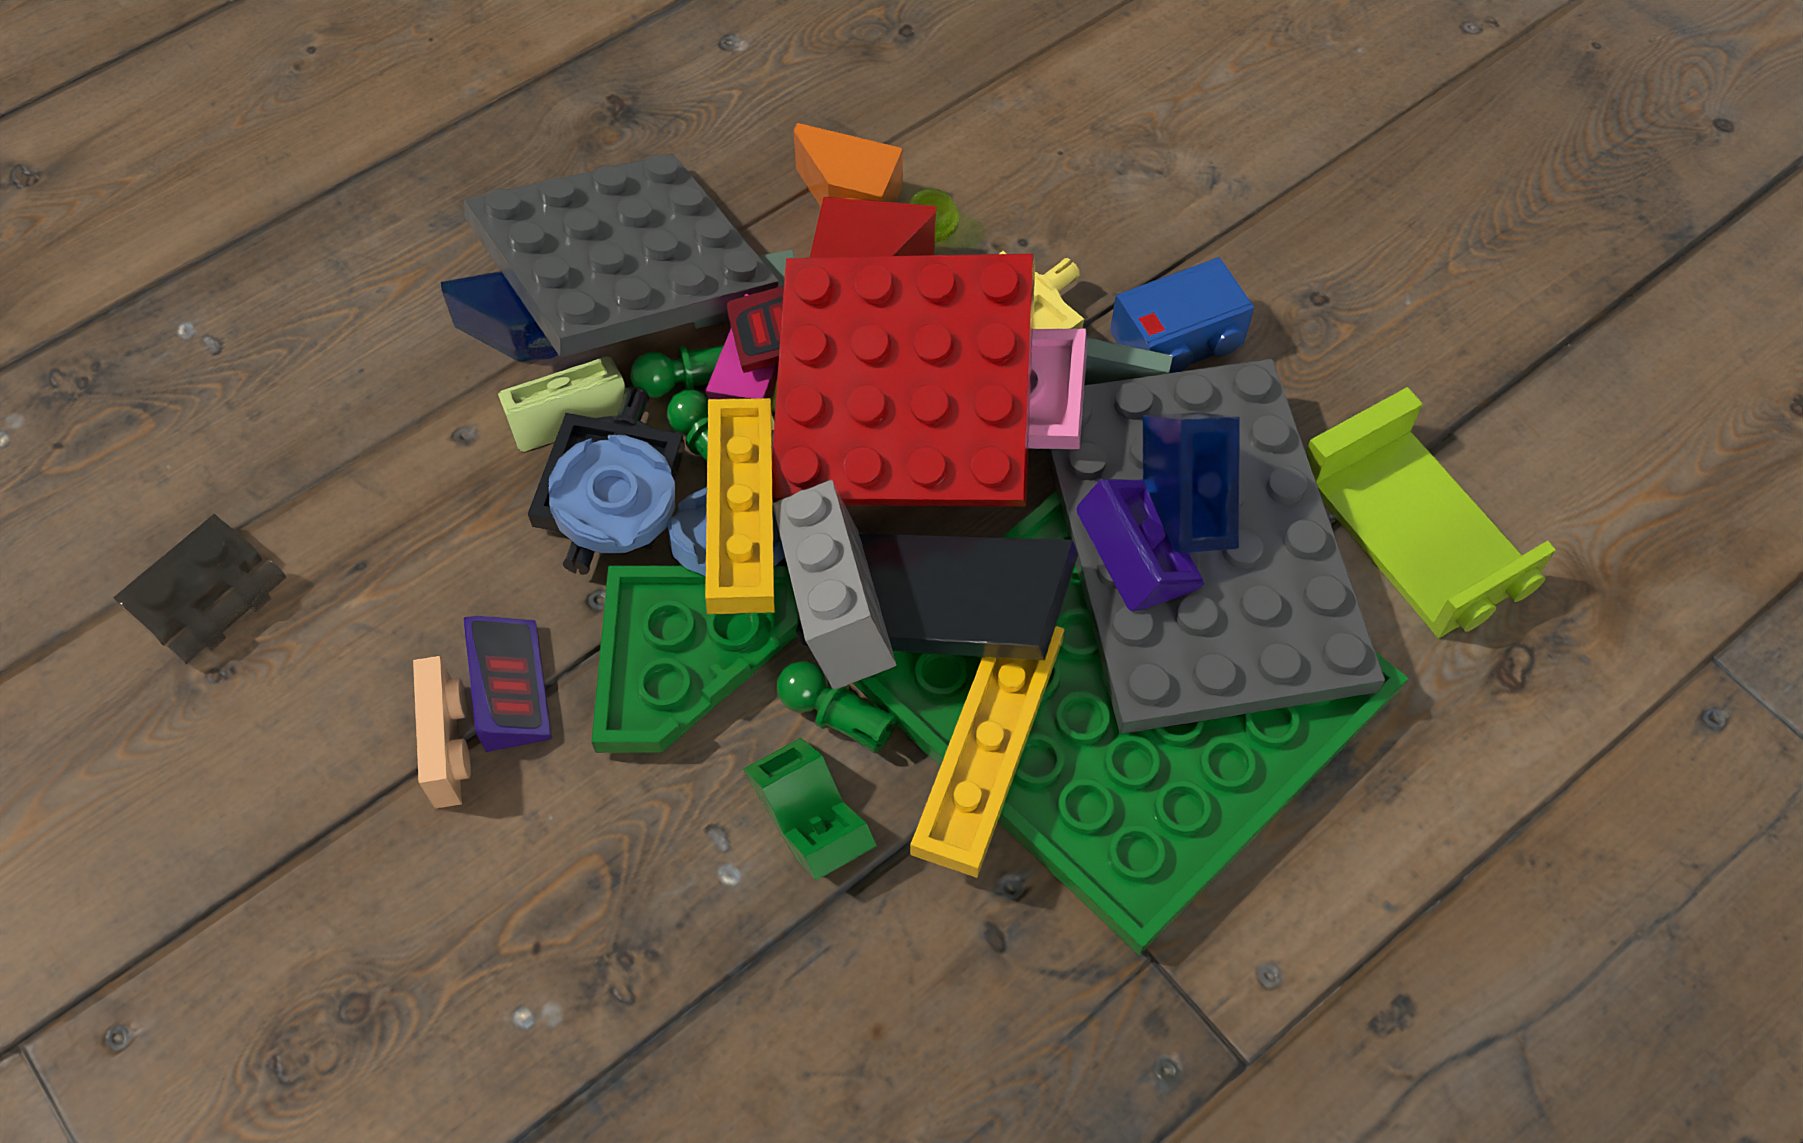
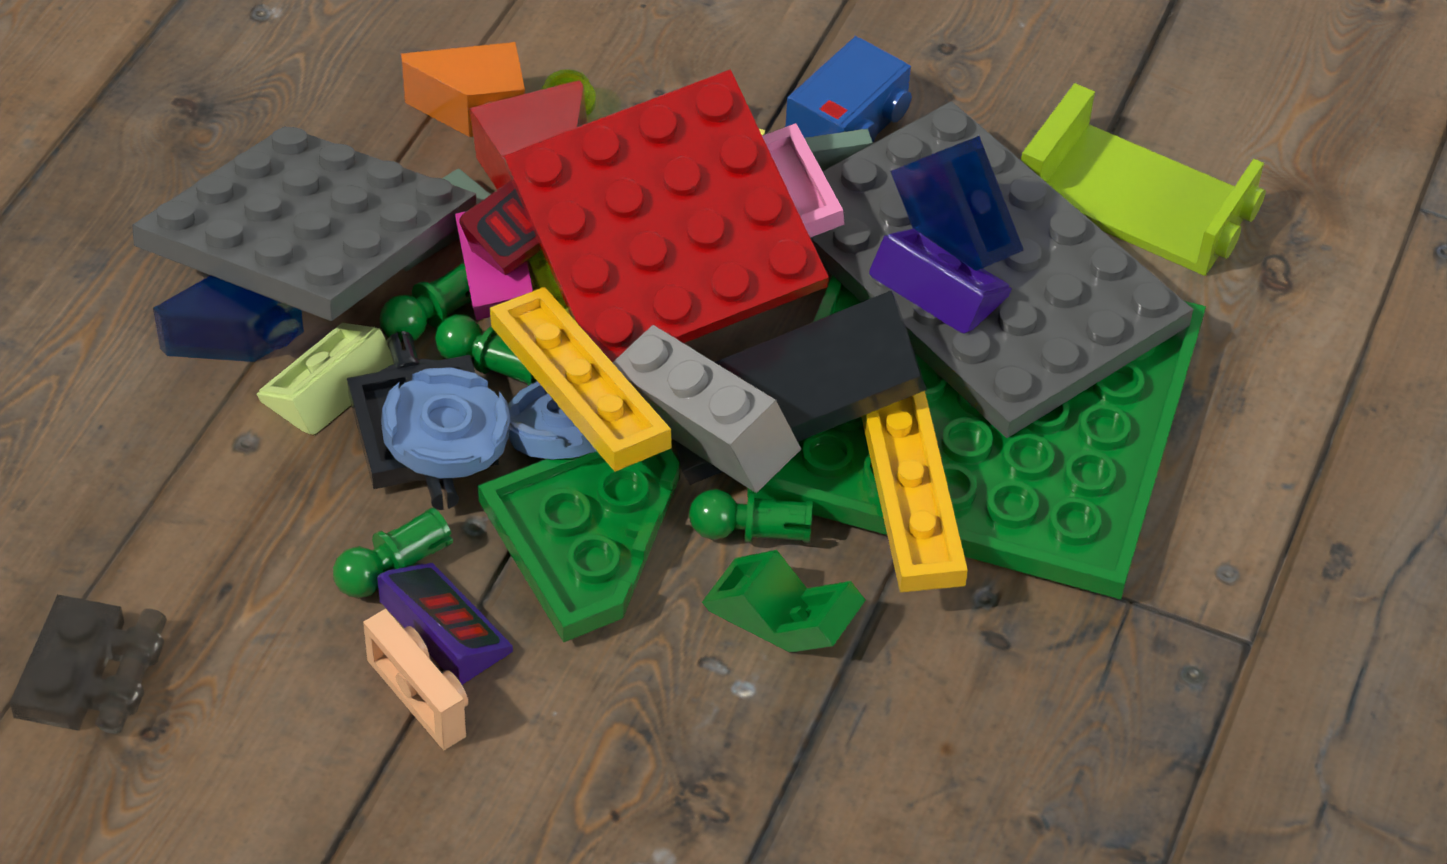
camera: 30 degrees left, 10 degrees down
(504, 597) = (359, 567): none -> green pin

